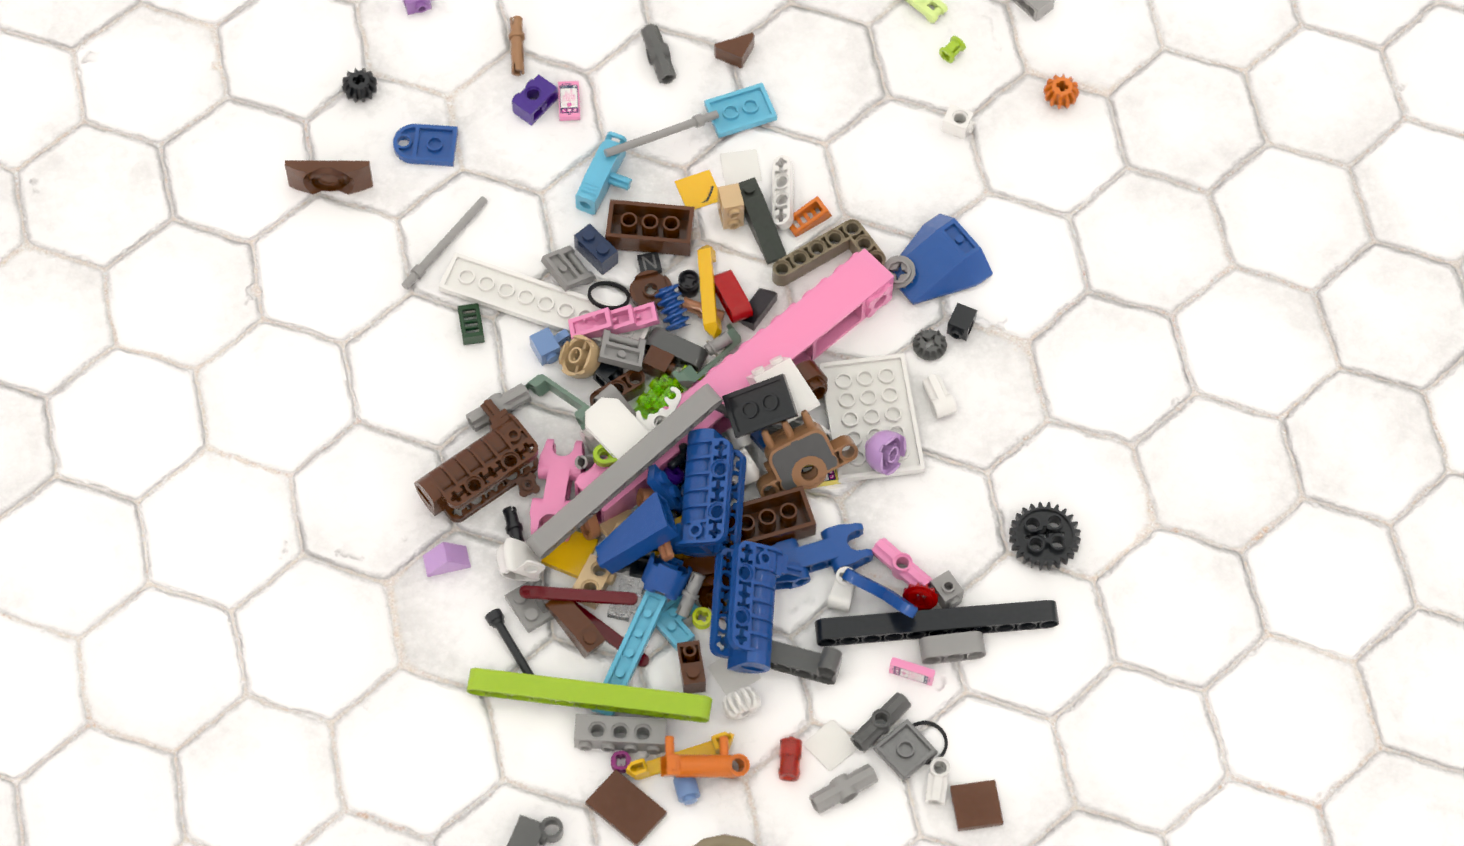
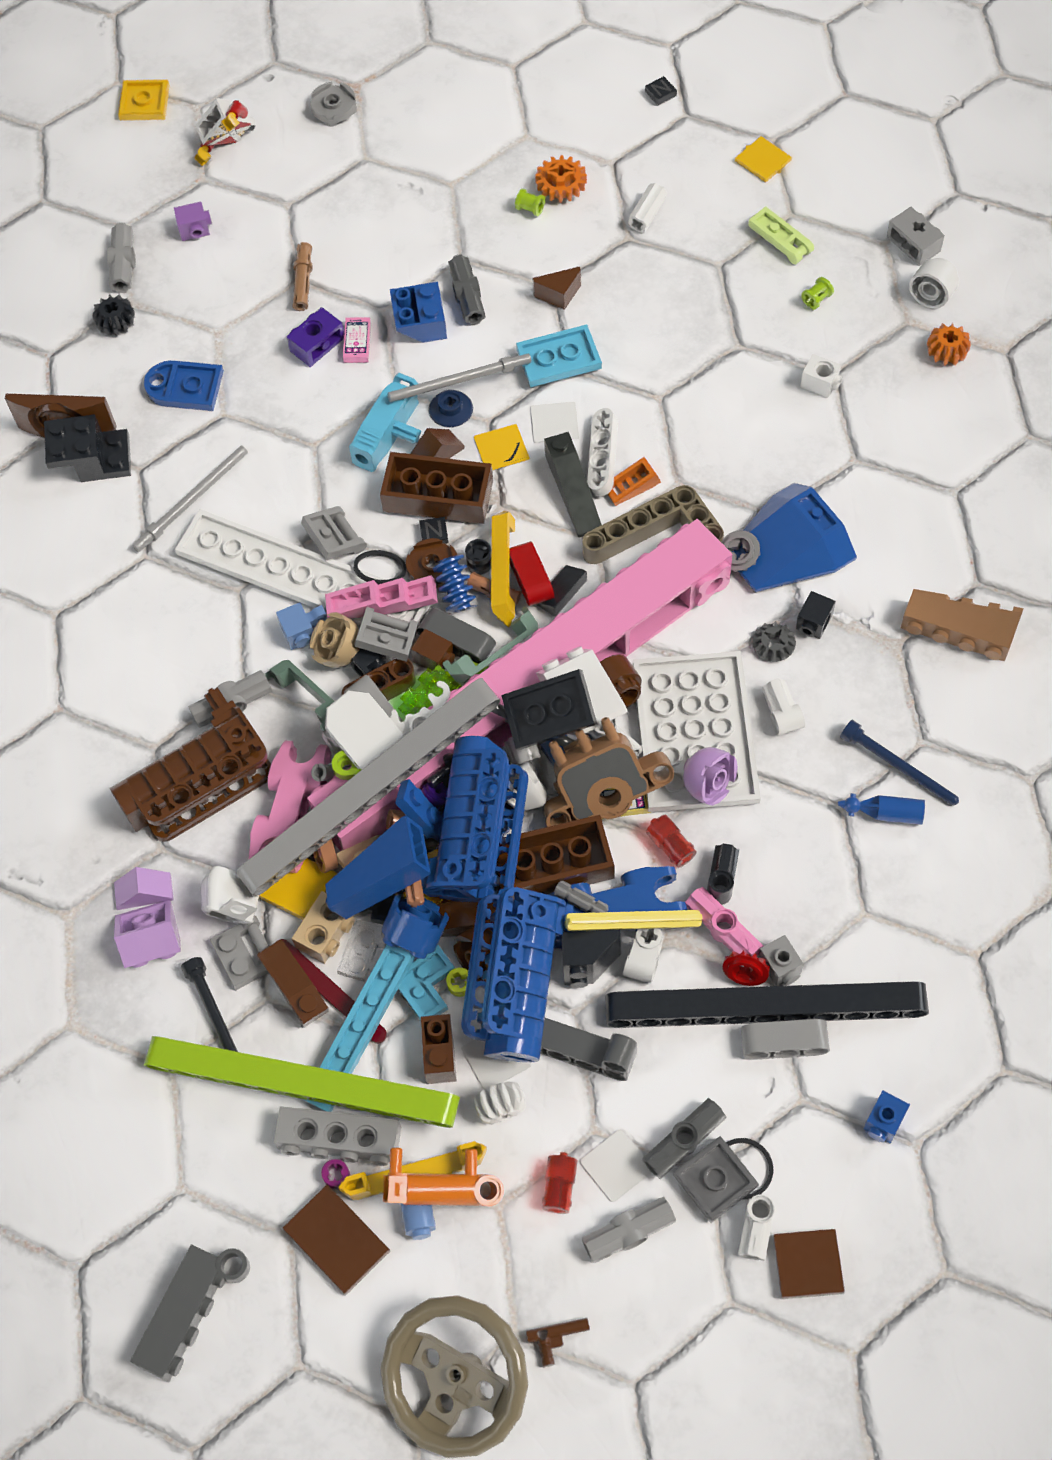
camera: 10 degrees right, 0 degrees up
(358, 33) = (121, 258): none -> light grey piece
(360, 206) = (84, 445): none -> black bracket
(455, 593) = (147, 934): none -> lavender slope
(472, 337) = (209, 612): dark green slope -> none
(514, 527) = (231, 849): black pin -> none
(521, 482) = (253, 805): reddish brown plate -> none
(578, 595) = (300, 945): dark red piece -> none
(596, 249) = (369, 511): dark blue brick -> none
(621, 75) = (419, 312): none -> blue slope
(646, 190) = (438, 443): none -> reddish brown slope
(651, 165) = (454, 415): none -> dark blue piece
(690, 594) = (443, 951): light grey pin -> none
(718, 343) = (507, 630): light grey pin -> none
(730, 206) = (536, 465): tan brick -> none
(793, 551) = (579, 898): none -> light grey axle
(800, 592) = (588, 955): none -> black slope
(833, 563) = (633, 920): none -> light yellow axle
(856, 502) = (671, 841): none -> clear red piece
(880, 591) = (700, 962): blue beam -> none
(899, 525) = (723, 872): none -> black piece
(912, 671) = (730, 1069): bright pink tile -> none
(996, 415) = (854, 734): none -> dark blue piece
(1023, 472) = (887, 808): none -> blue wheel
(1029, 699) = (886, 1117): none -> blue brick
(1048, 38) = (934, 282): none -> white piece
(1048, 553) = (917, 918): black gear -> none
(1076, 324) = (962, 623): none -> medium nougat wedge

